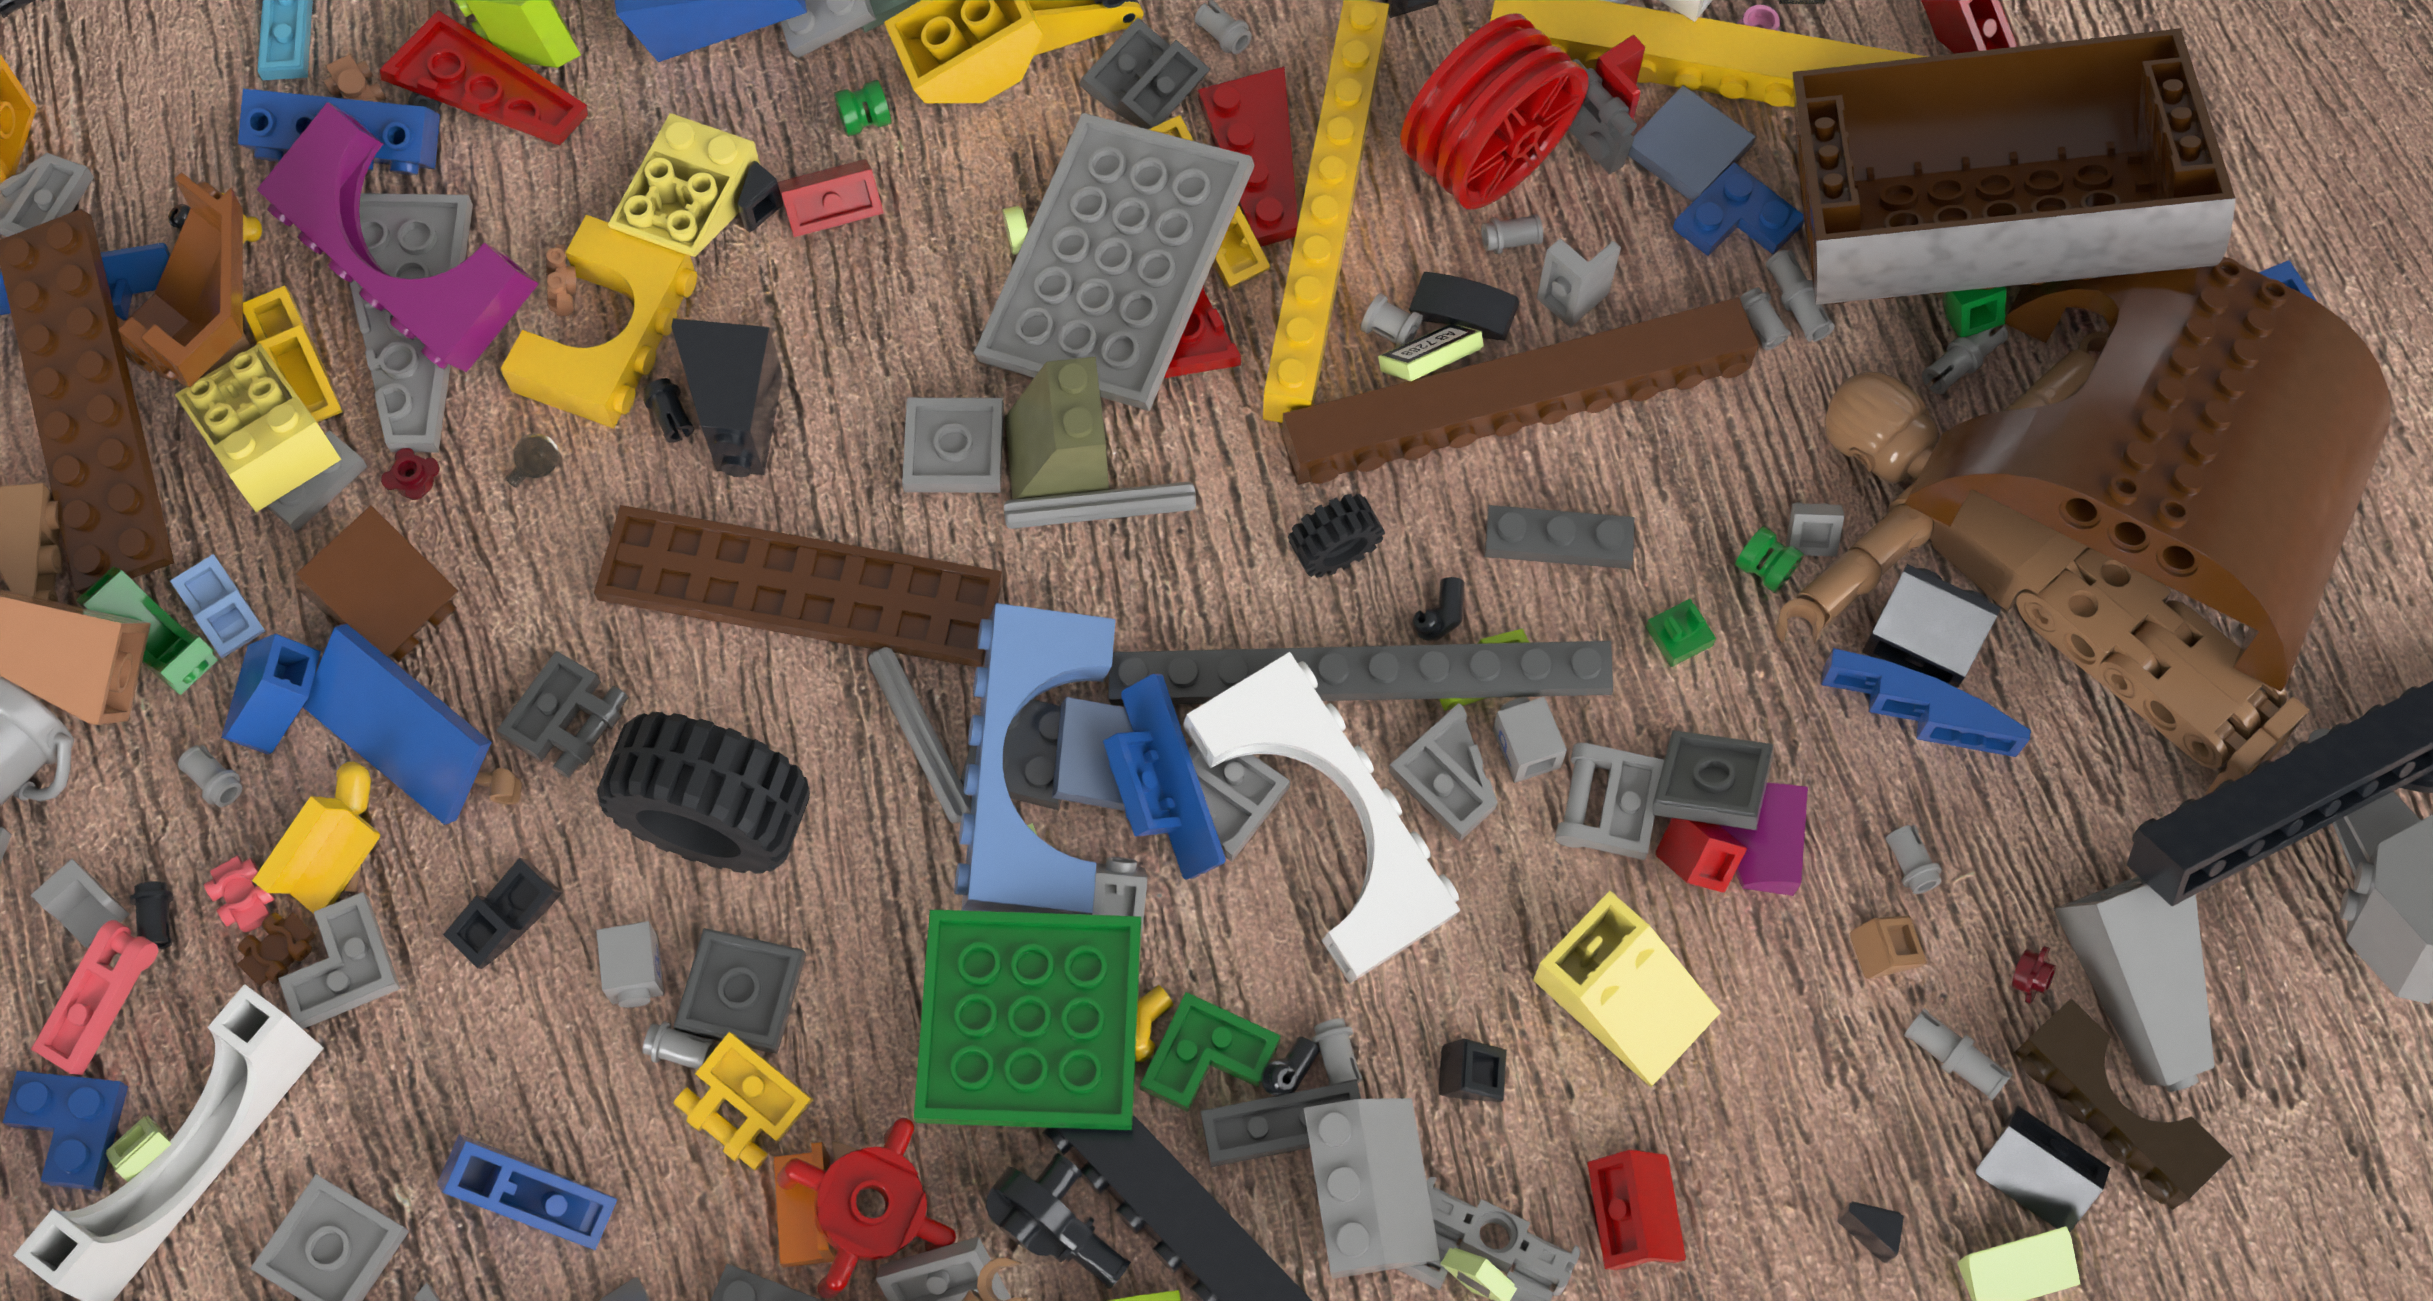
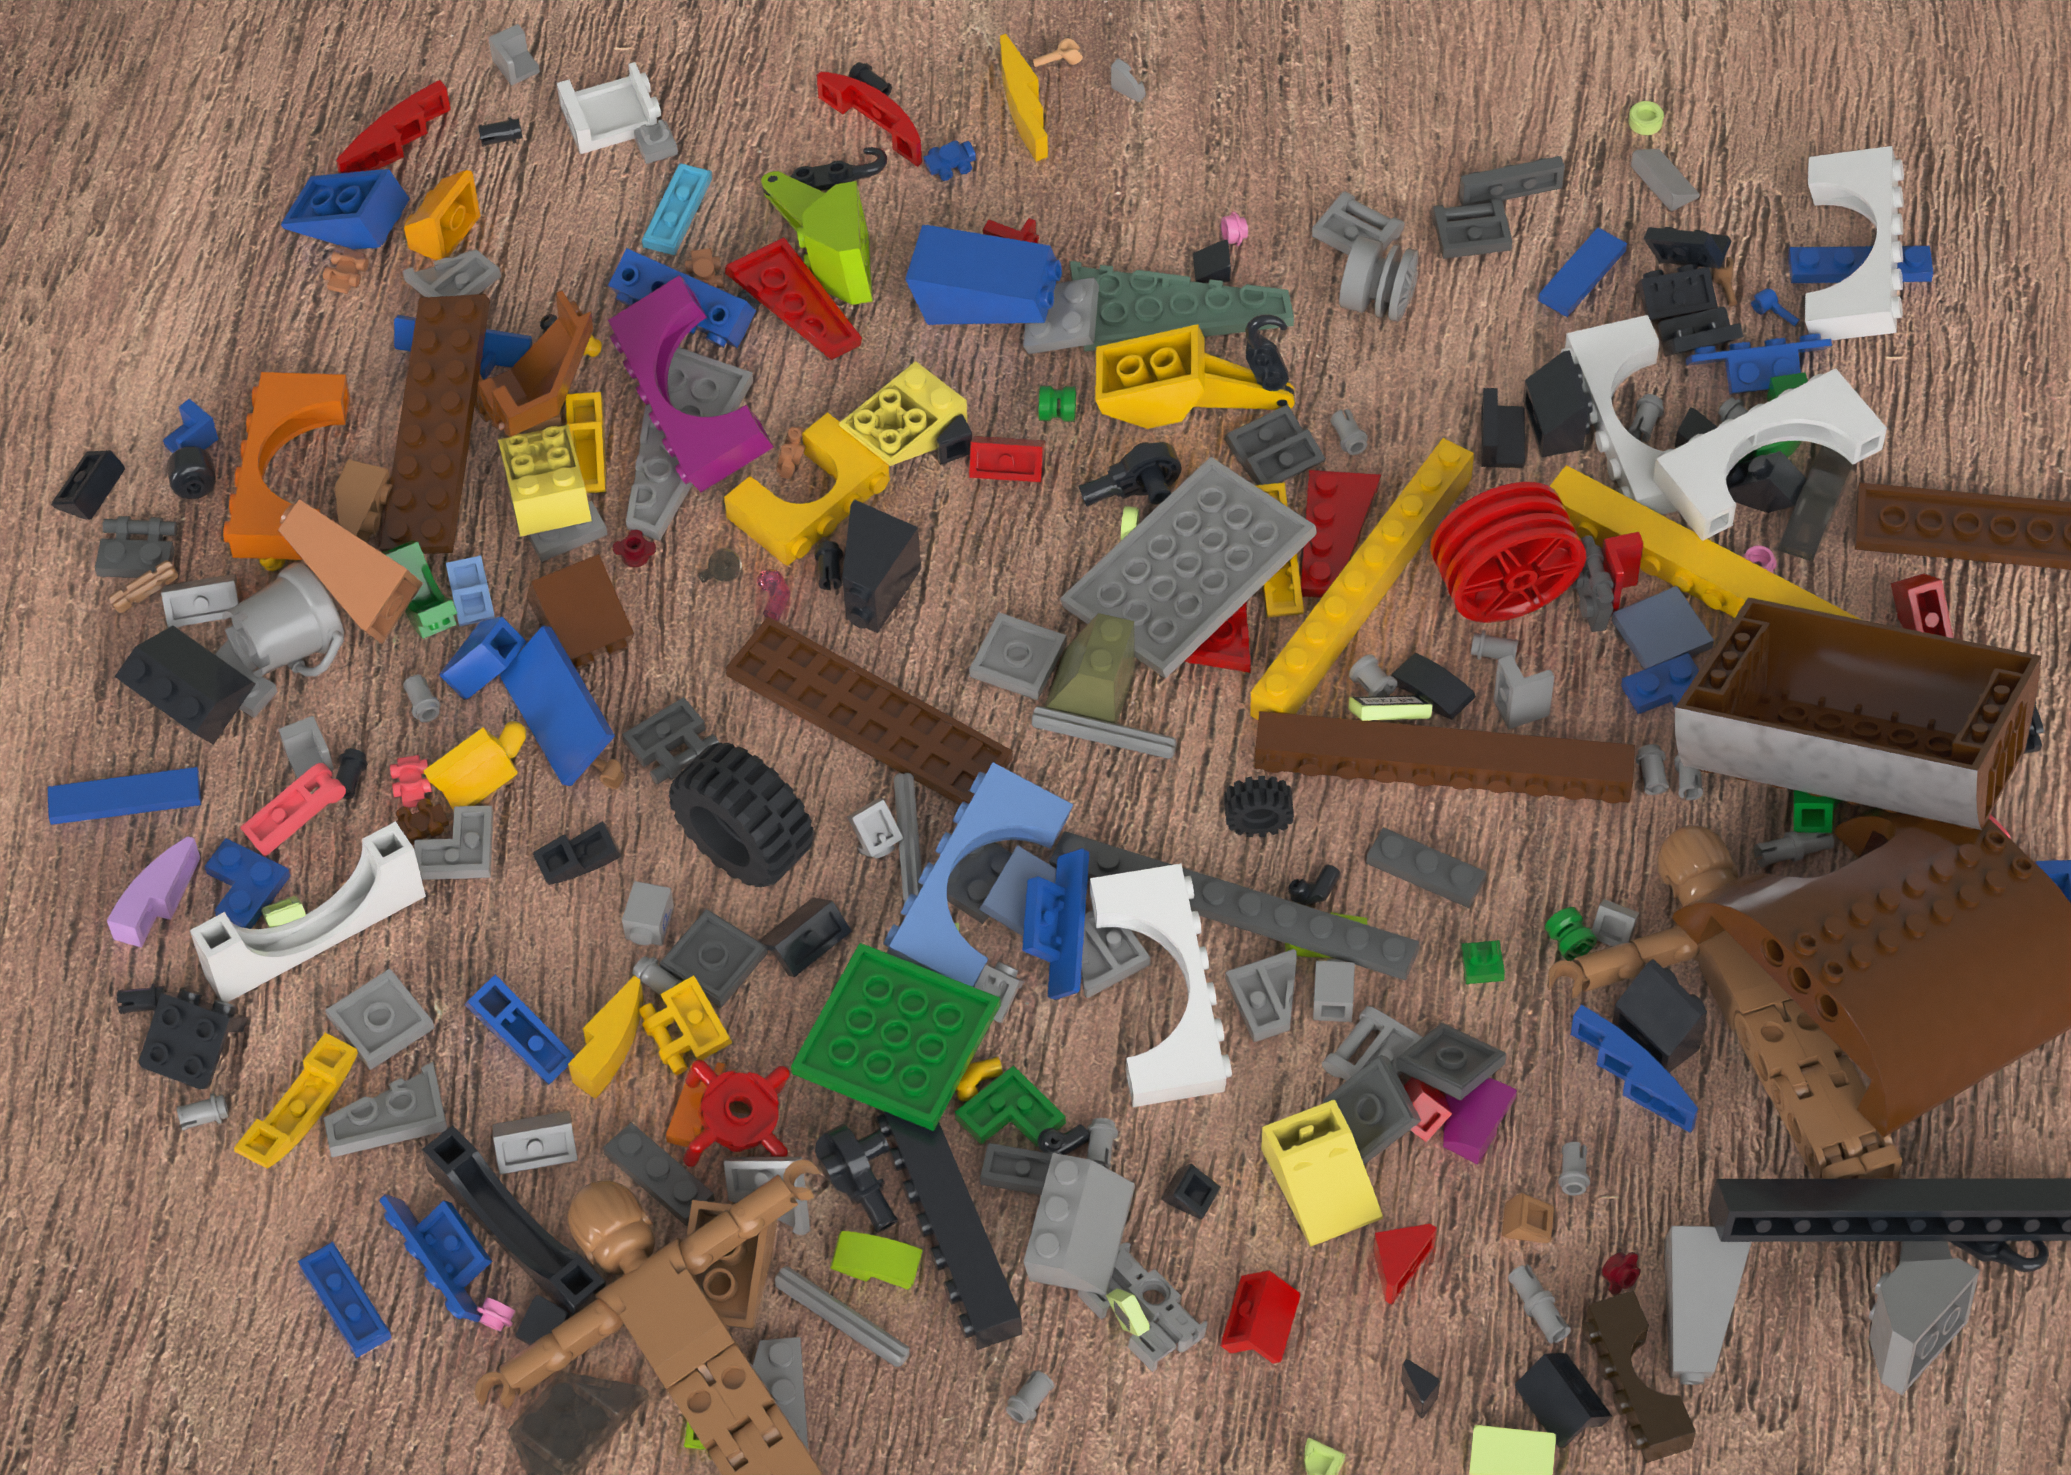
camera: 25 degrees right, 10 degrees down
(619, 466) = (775, 584): none -> clear pink arm
(650, 1159) = (608, 1040): none -> yellow slope
(844, 913) = (806, 935): none -> black panel
(877, 740) = (875, 829): none -> light grey bracket
(1000, 164) = (1141, 472): none -> black pin
(1652, 874) = (1375, 1107): none -> dark grey plate
(1768, 1063) = (1400, 1255): none -> red slope

